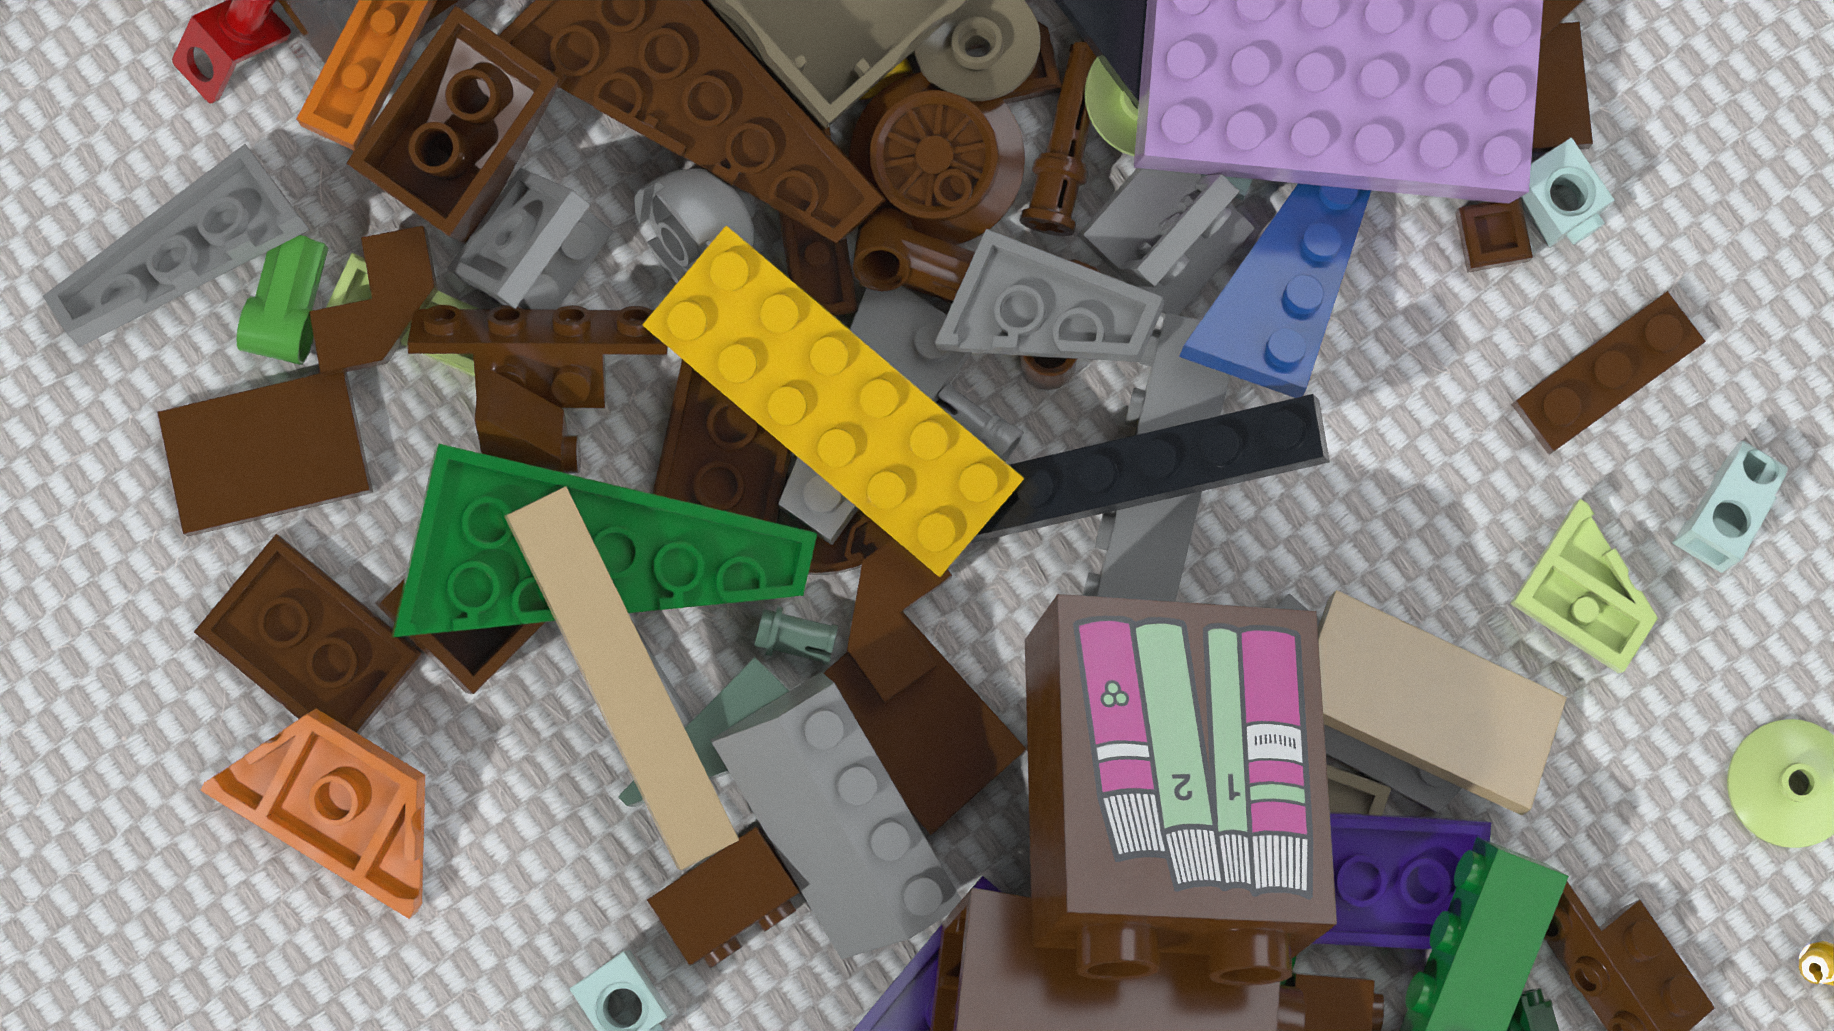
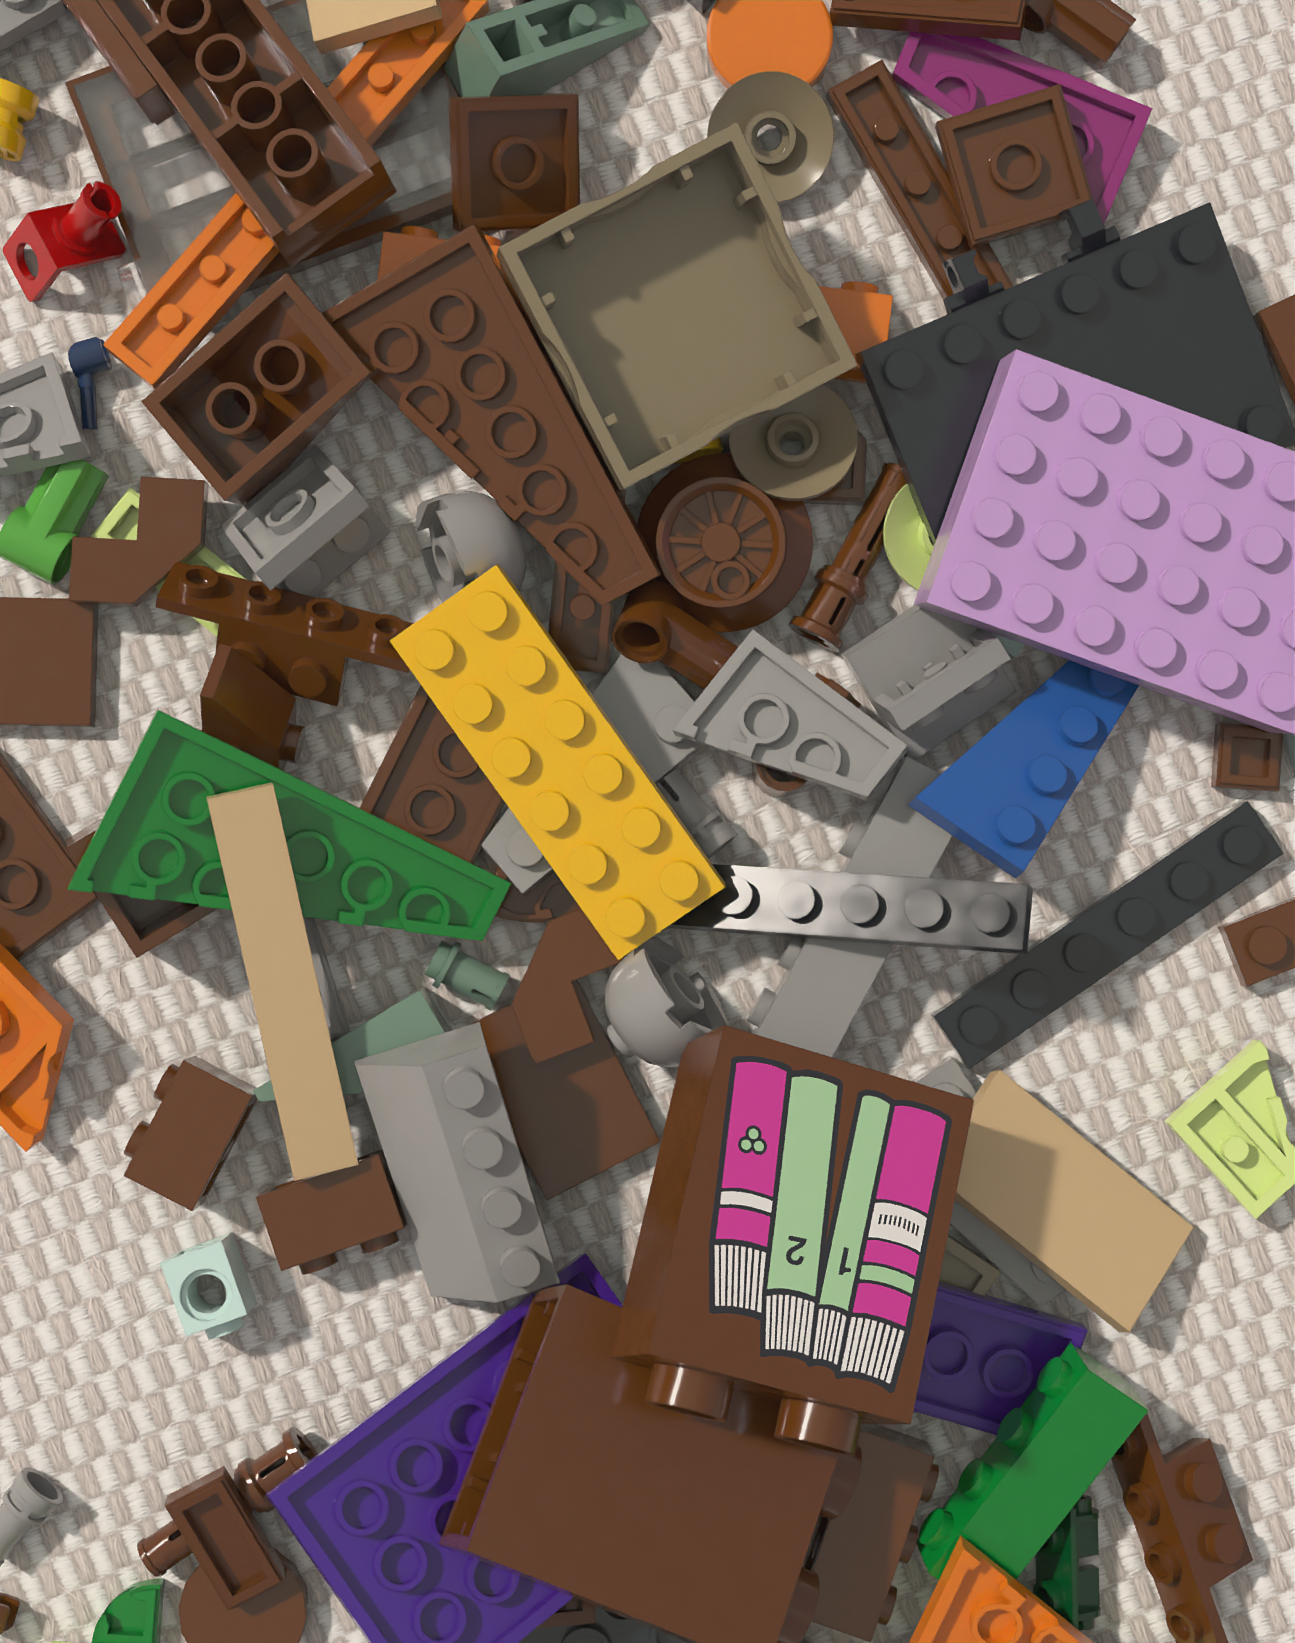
camera: 10 degrees right, 5 degrees up
(280, 142) = (87, 359): none -> dark blue hand
(565, 857) = (190, 1131): none -> reddish brown brick
(986, 613) = (657, 1006): none -> light grey cylinder
(1405, 438) = (1107, 934): none -> black plate

